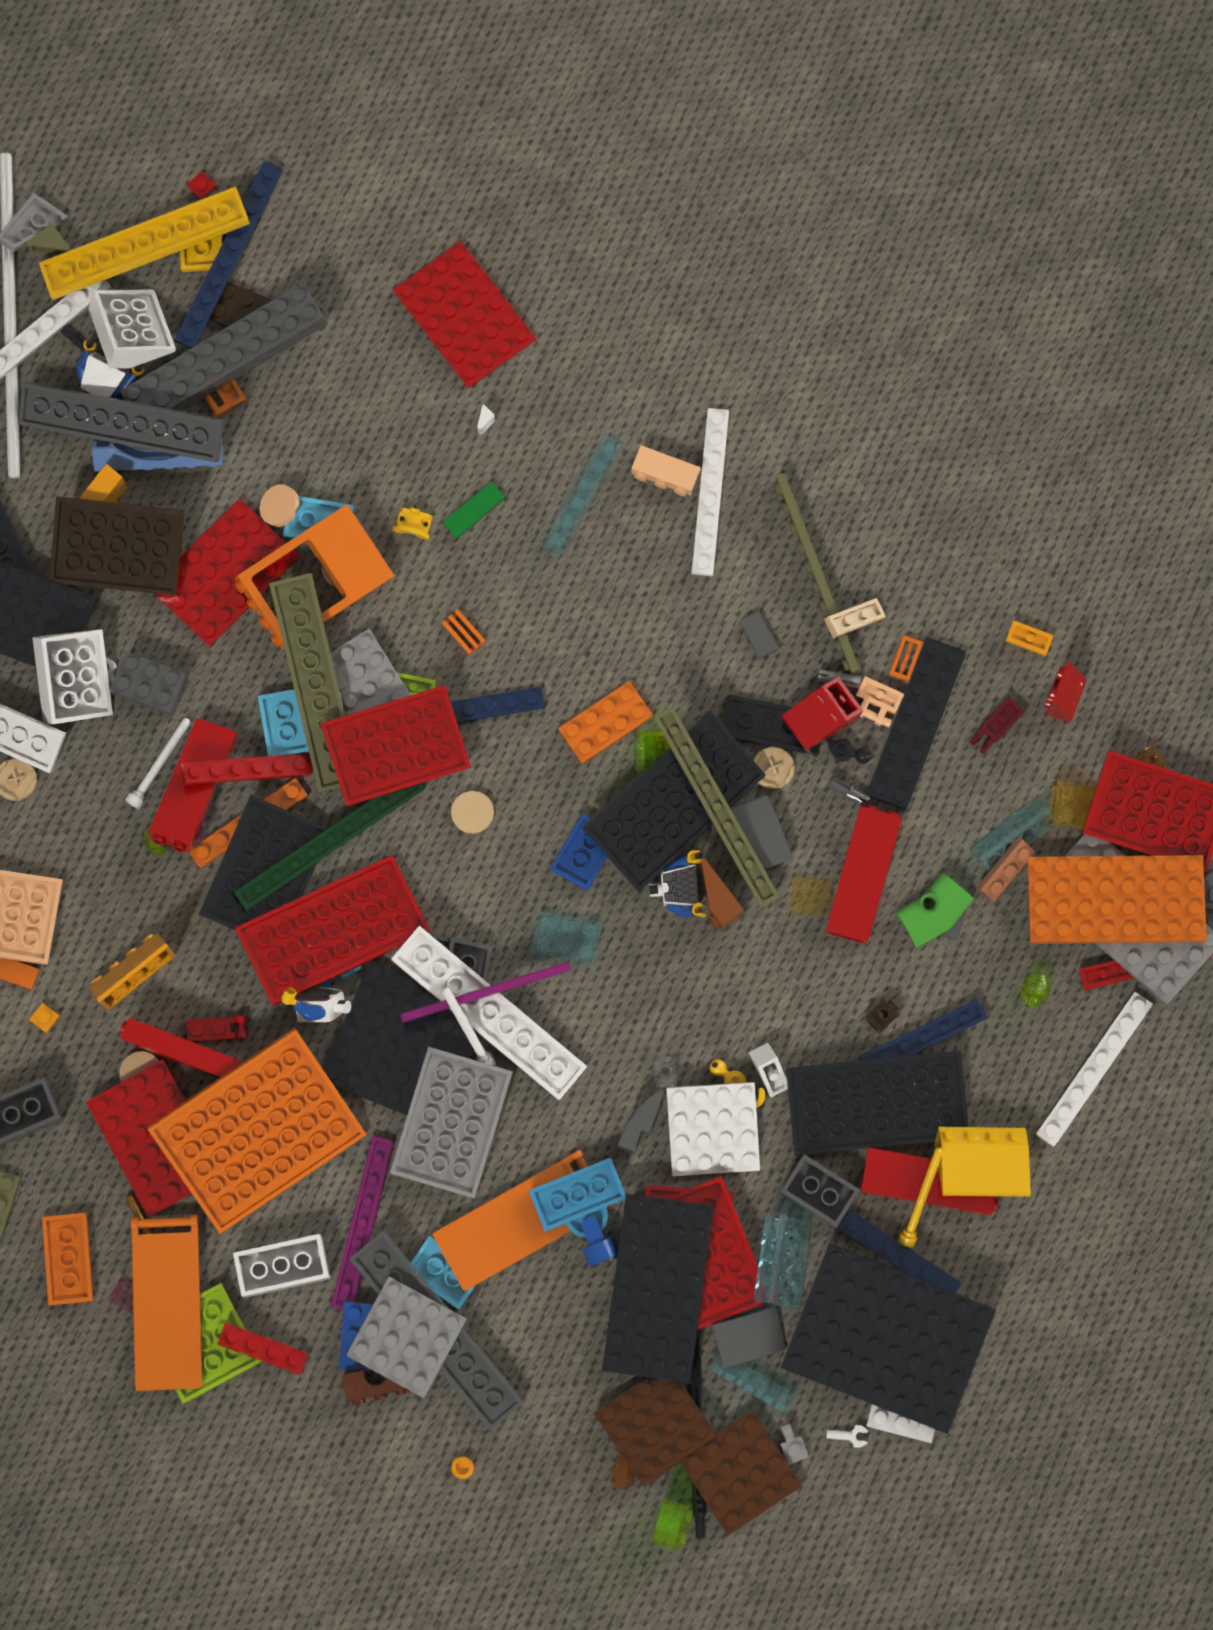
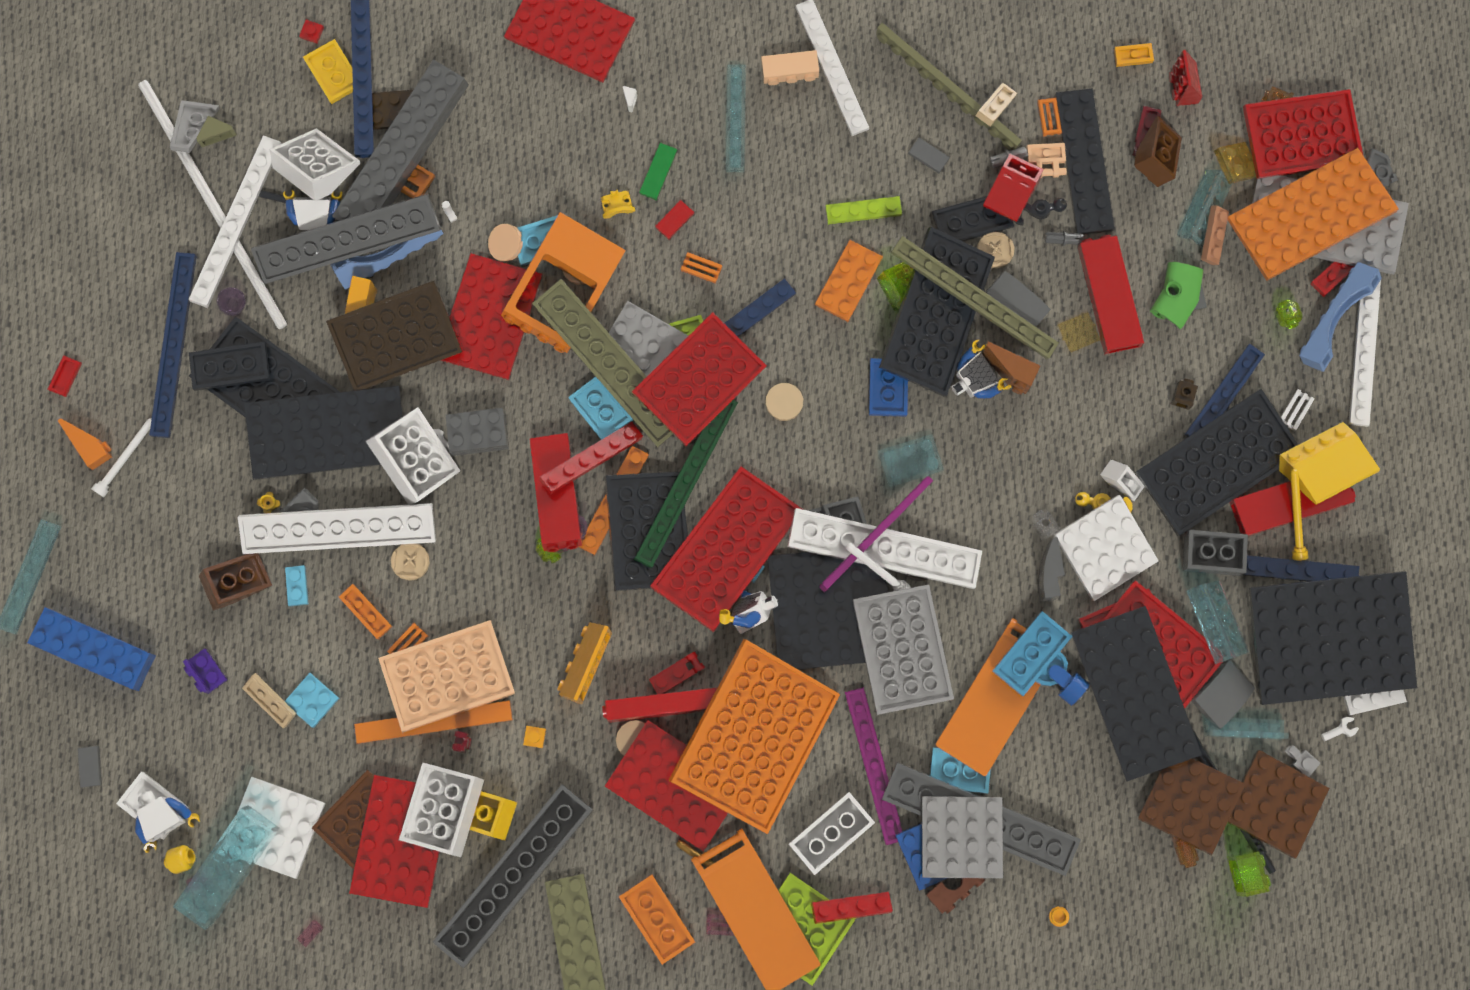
camera: 30 degrees left, 0 degrees up
(136, 797) = (514, 525): white piece -> none
(144, 243) = (290, 94): yellow plate -> none
(240, 445) = (448, 211): none -> white bar
(463, 569) = (674, 219): none -> red tile
(660, 657) = (863, 210): none -> lime plate
(994, 754) = (1159, 153): none -> reddish brown slope
(1004, 1082) = (1303, 397): none -> white tile
(1123, 997) = (1359, 284): none -> medium blue arch

